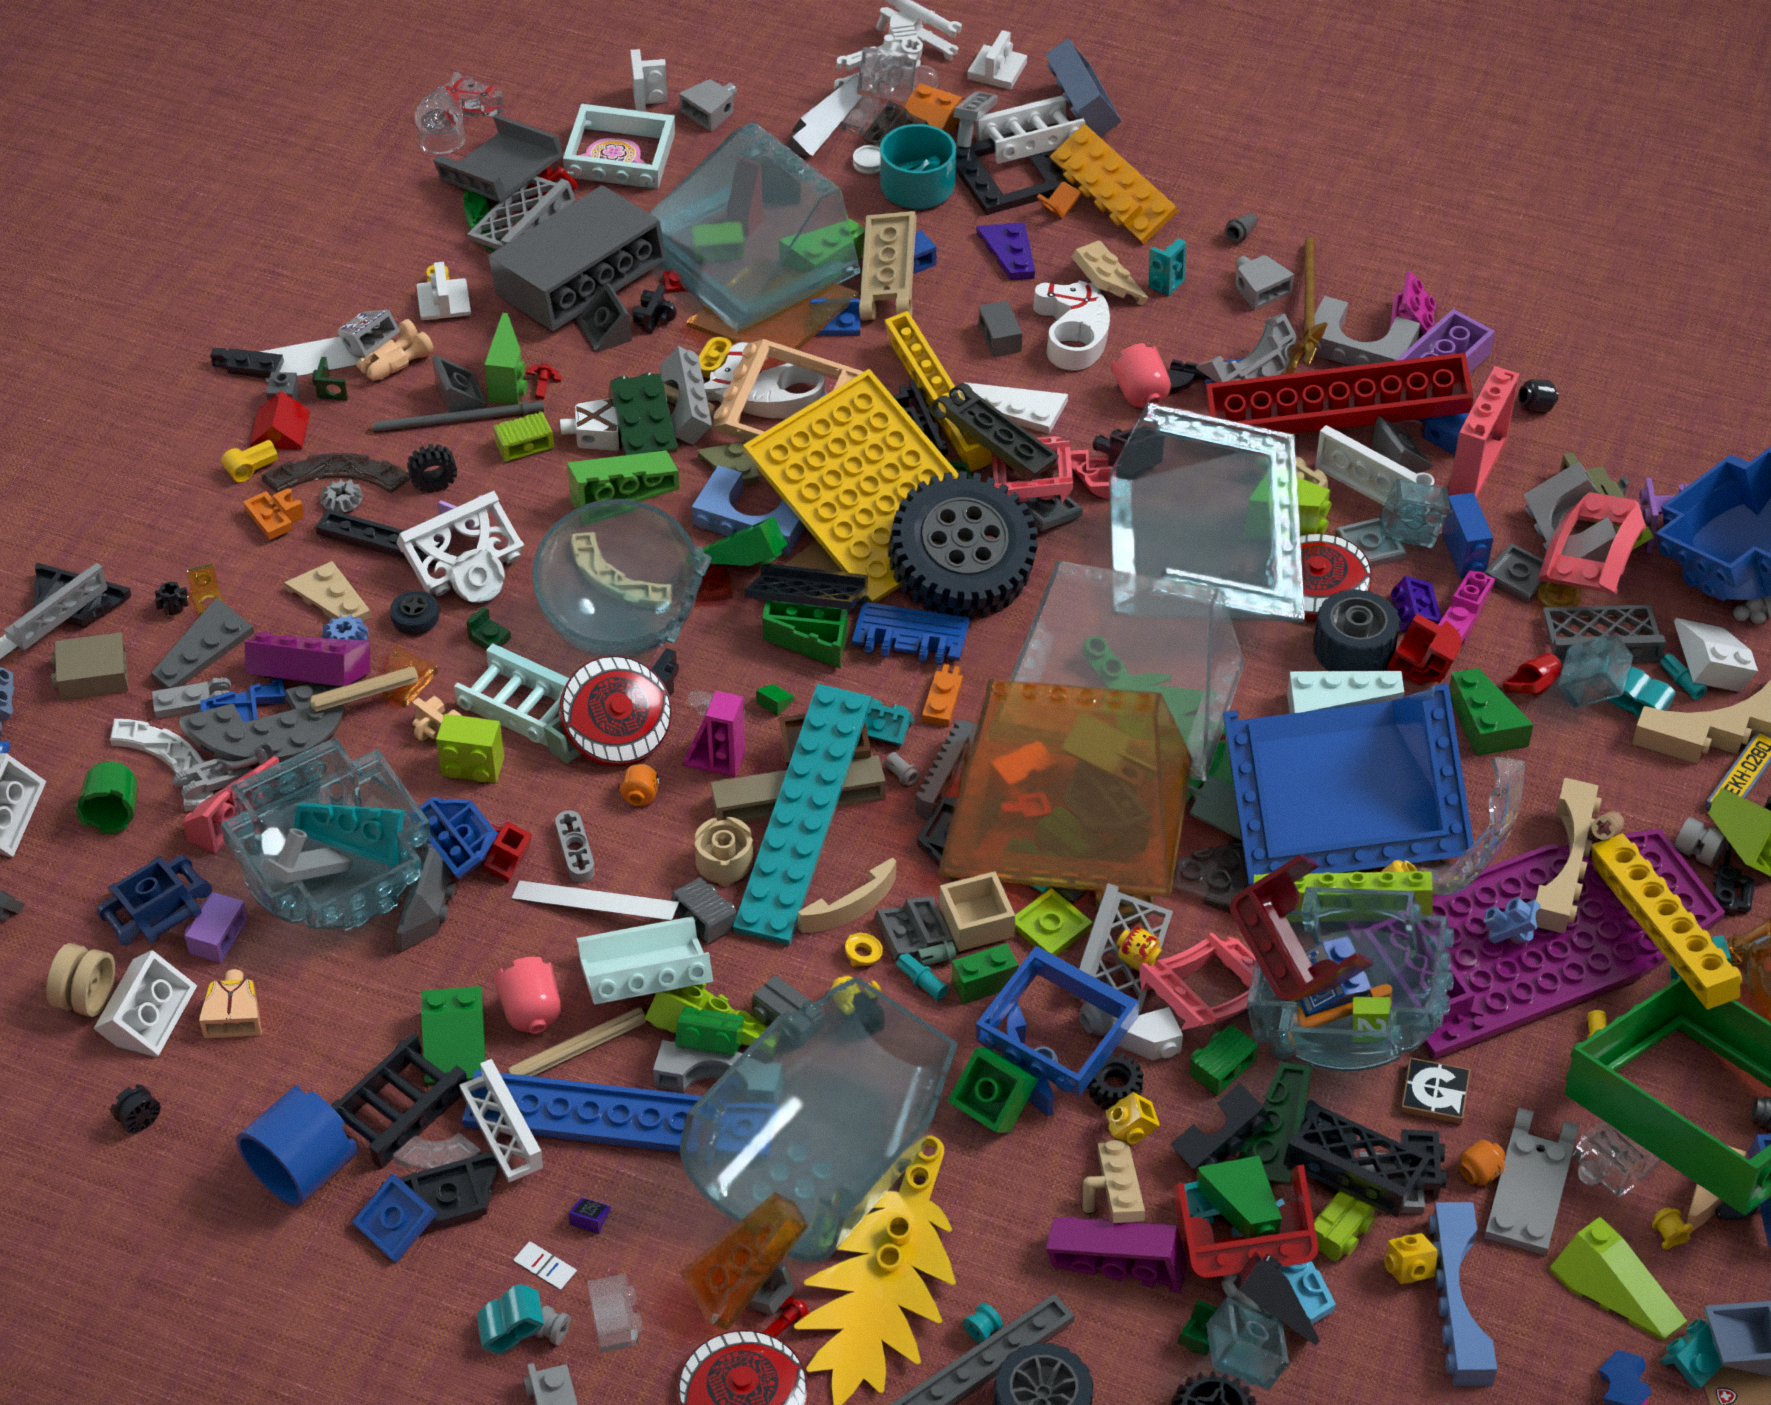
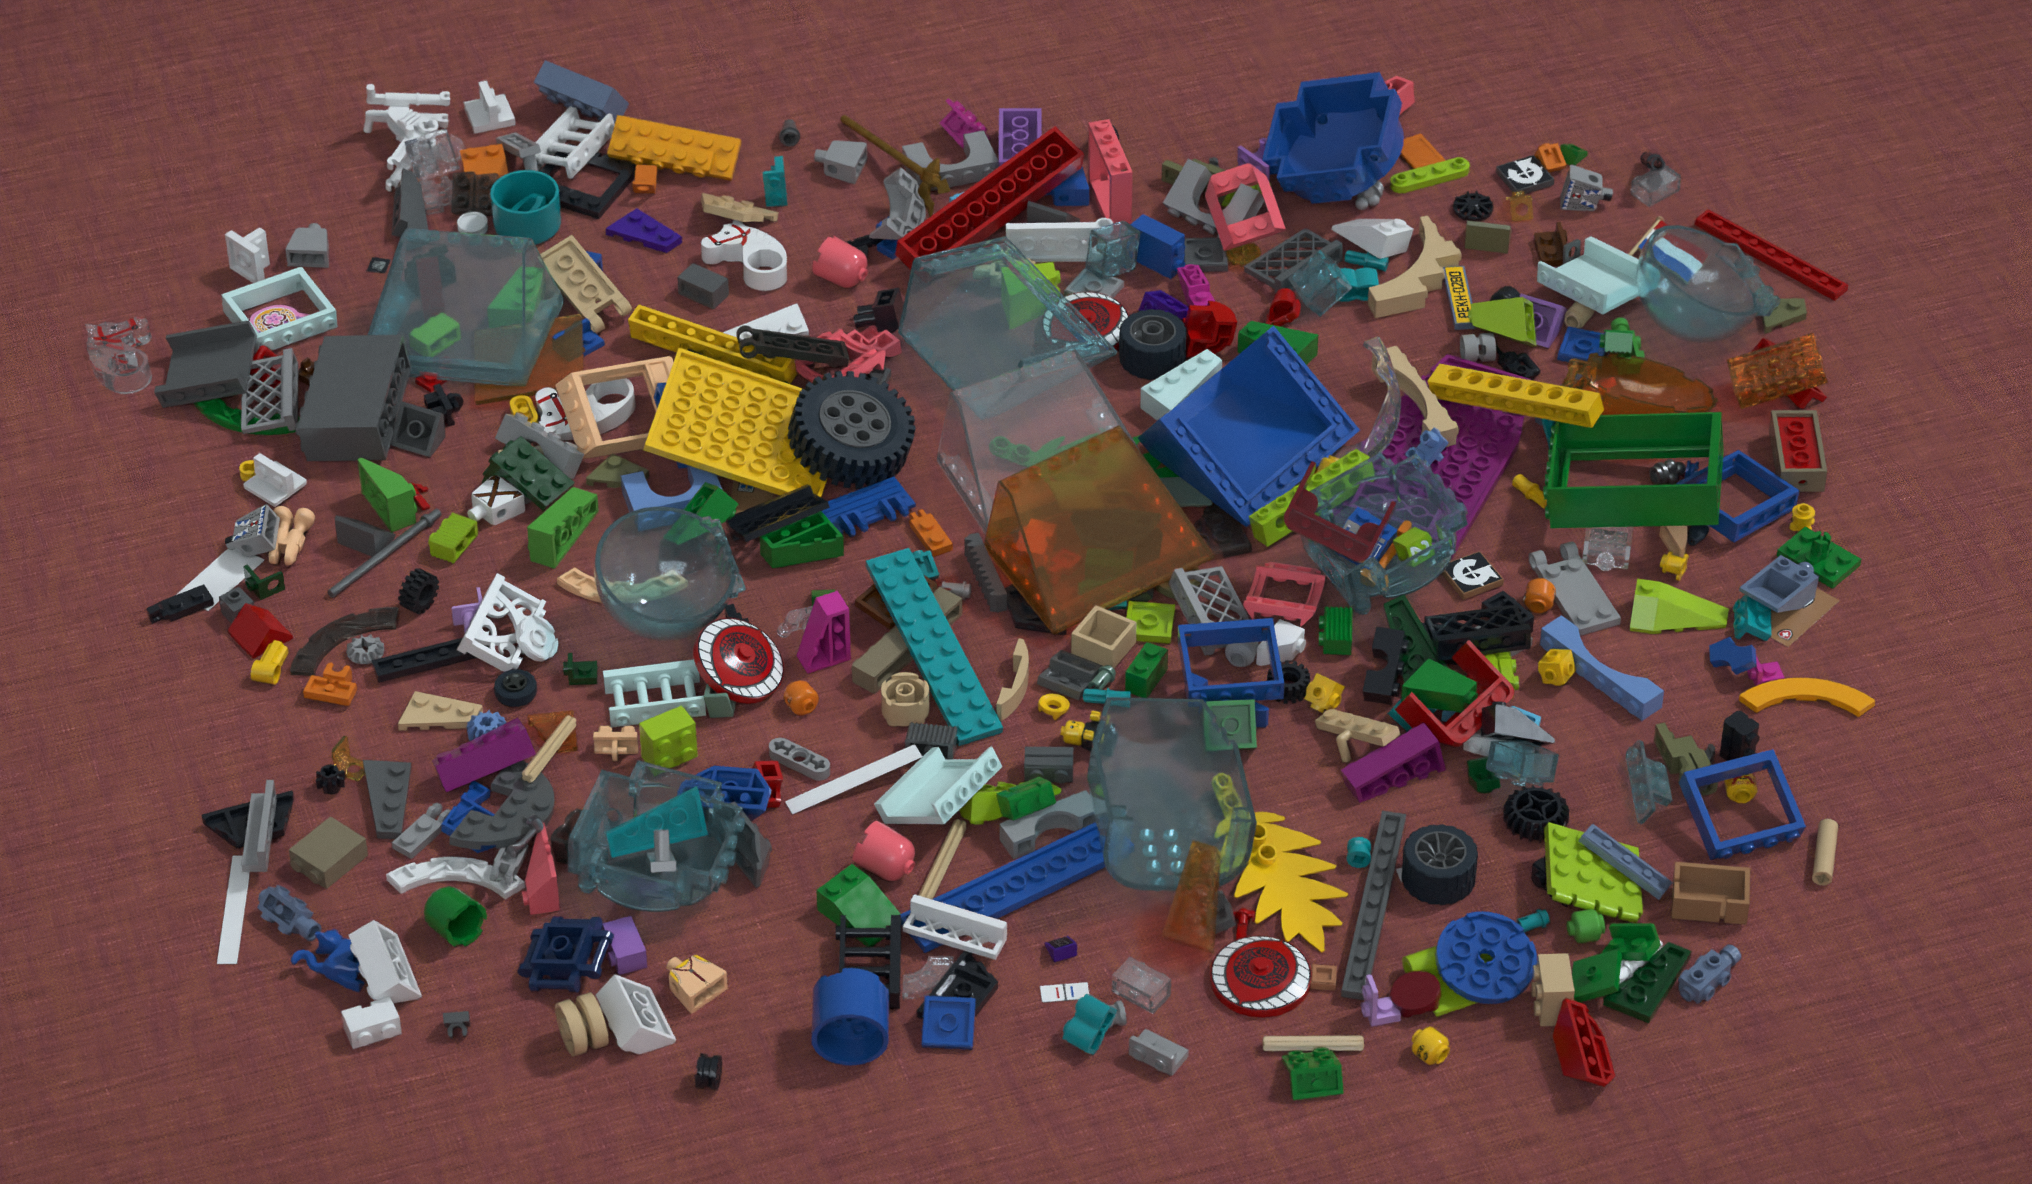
camera: 40 degrees left, 5 degrees down
(1138, 947) = (1228, 597): yellow head -> none
(1599, 824) = (1426, 364): tan piece -> none

